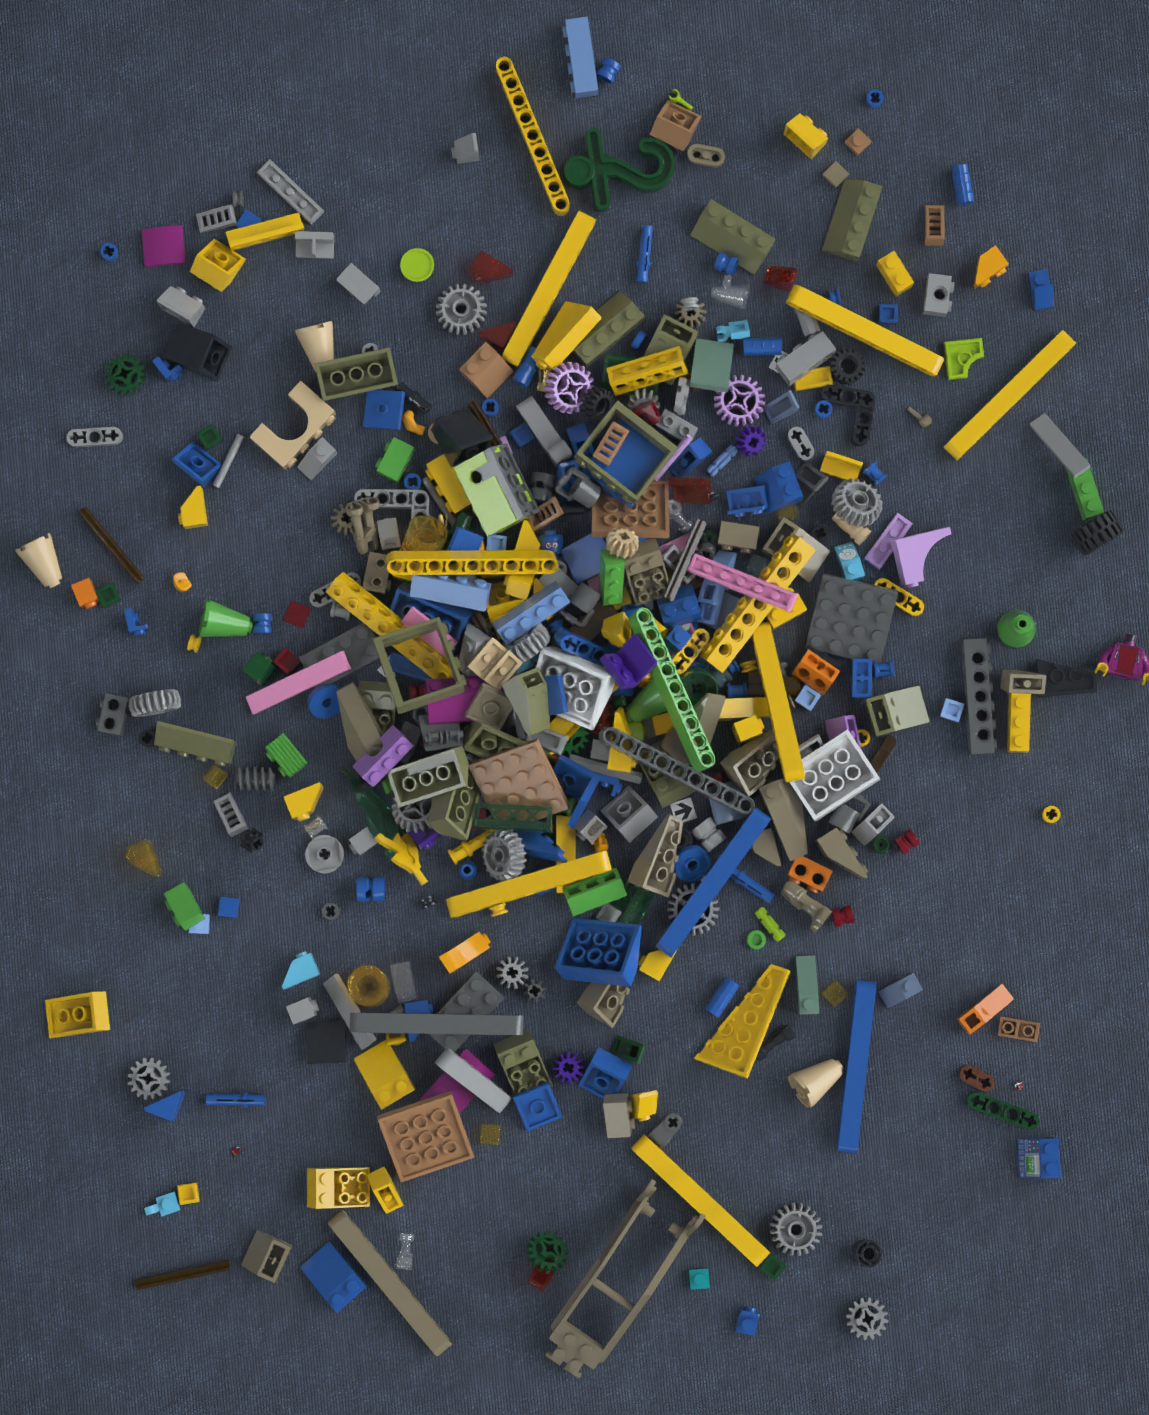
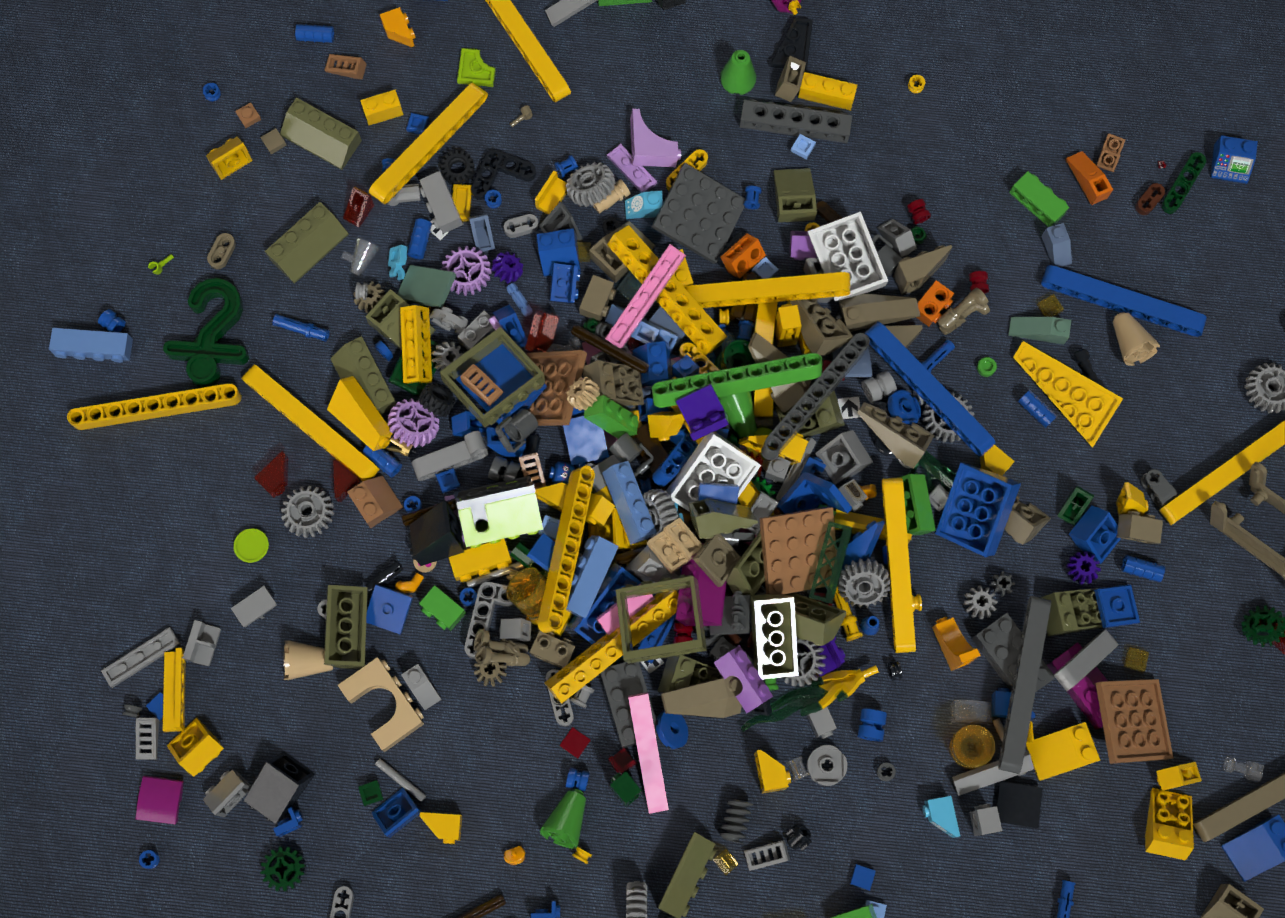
camera: 80 degrees left, 10 degrees down
(286, 756) = (718, 783): bright green brick -> none
(466, 149) = (148, 470): light grey slope -> none
(580, 1126) = (1143, 568): none -> blue axle
(647, 412) = (456, 350): dark red panel -> none
(675, 125) = (184, 272): medium nougat slope -> none
(726, 263) = (331, 254): blue wheel -> none
(770, 924) = (974, 350): lime axle -> none
(861, 678) = (757, 218): blue hinge -> none
(932, 305) = (419, 83): light grey brick -> none
(948, 963) = (1039, 199): none -> bright green brick

